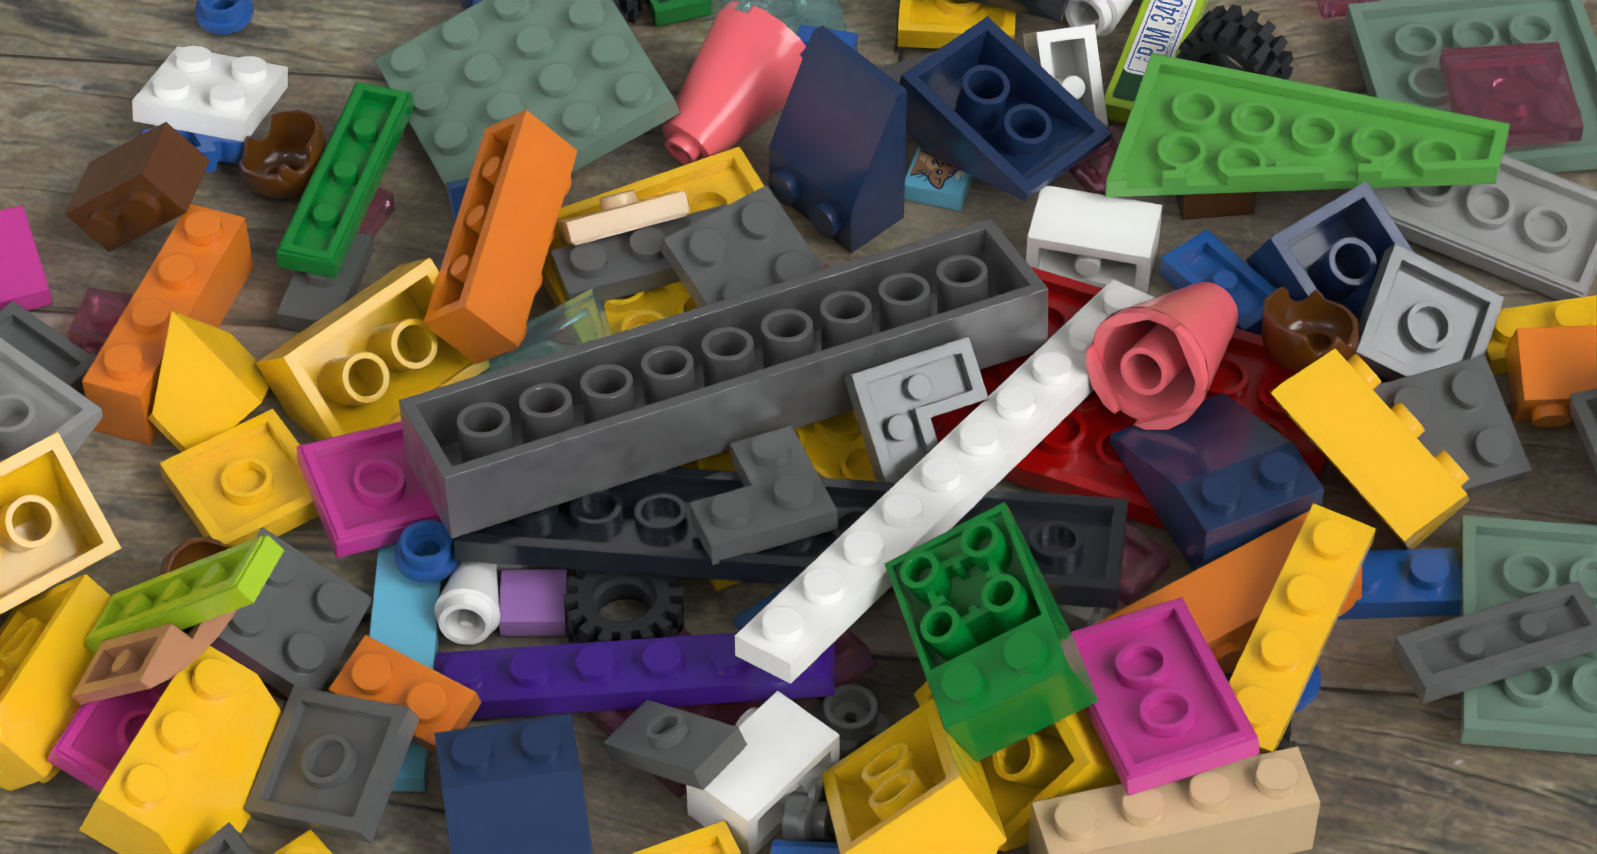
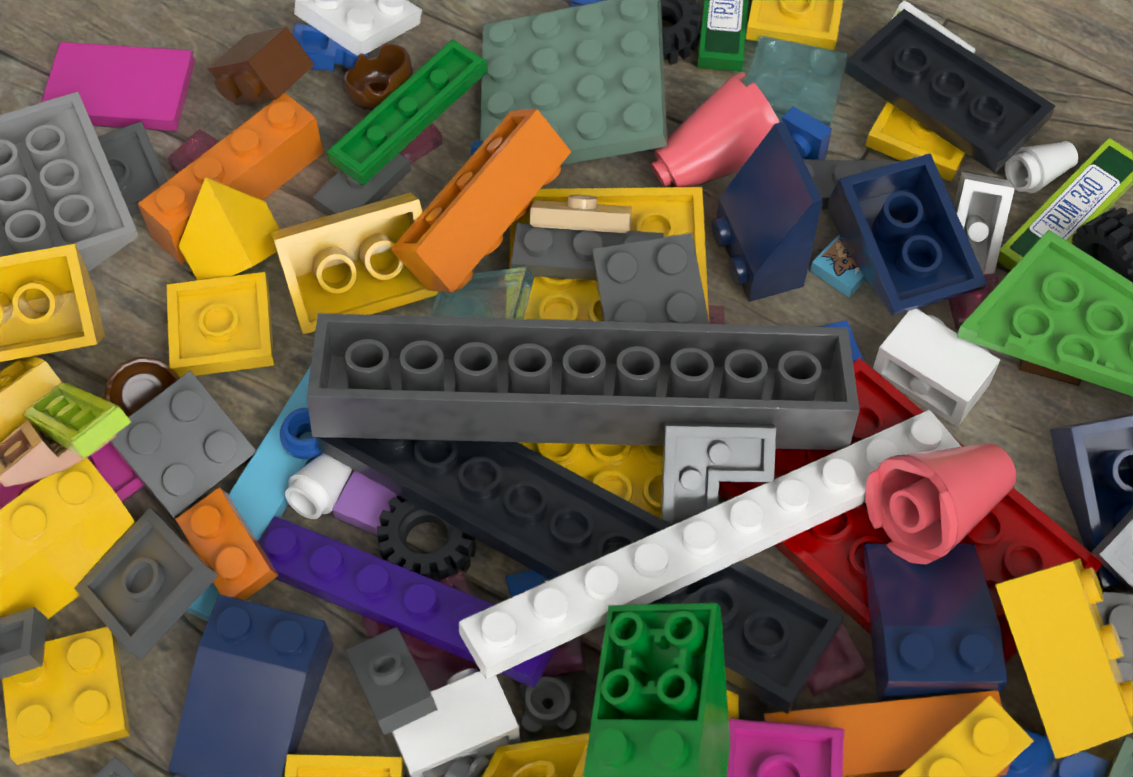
camera: 25 degrees right, 10 degrees up
(364, 488) = (279, 363): dark pink tile -> none
(775, 507) = (558, 513): dark grey plate -> none
(1210, 260) = (1019, 429): blue plate -> none
(1306, 329) = (1067, 521): reddish brown hair -> none

